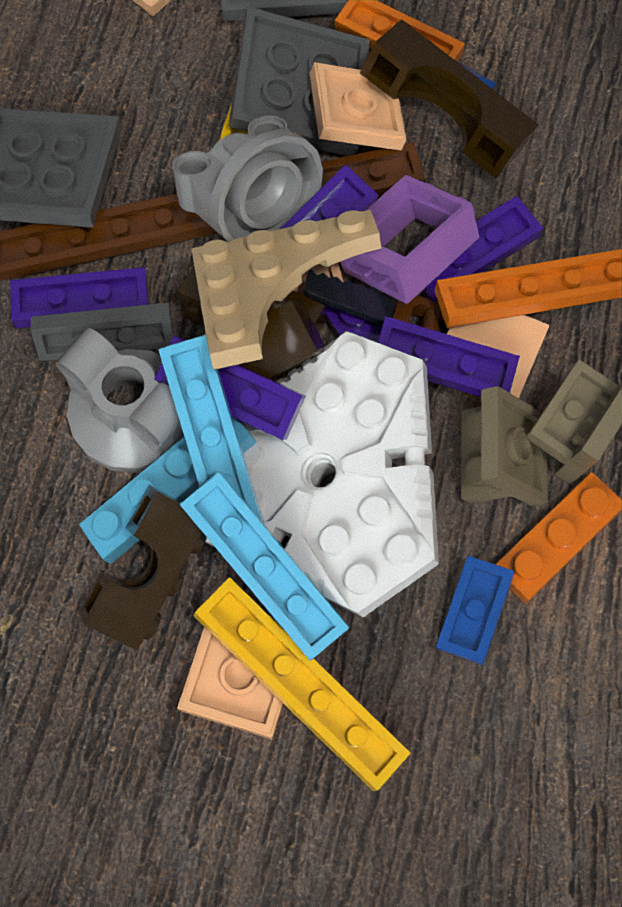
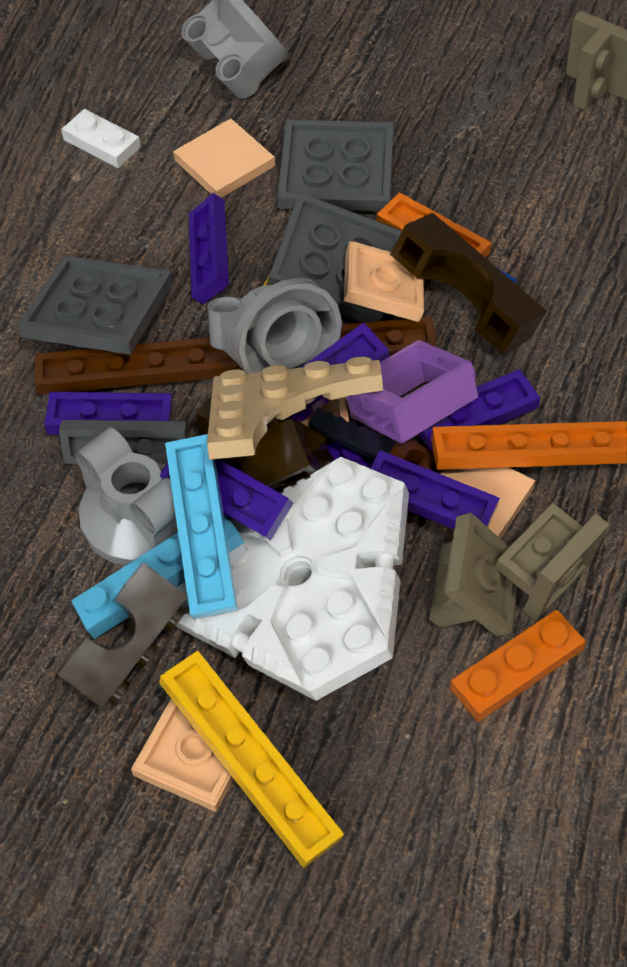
camera: 10 degrees right, 15 degrees down
(154, 82) = (208, 249): none -> dark purple plate
(264, 565) = (231, 641): medium azure plate -> none
(475, 610) = (426, 716): blue plate -> none

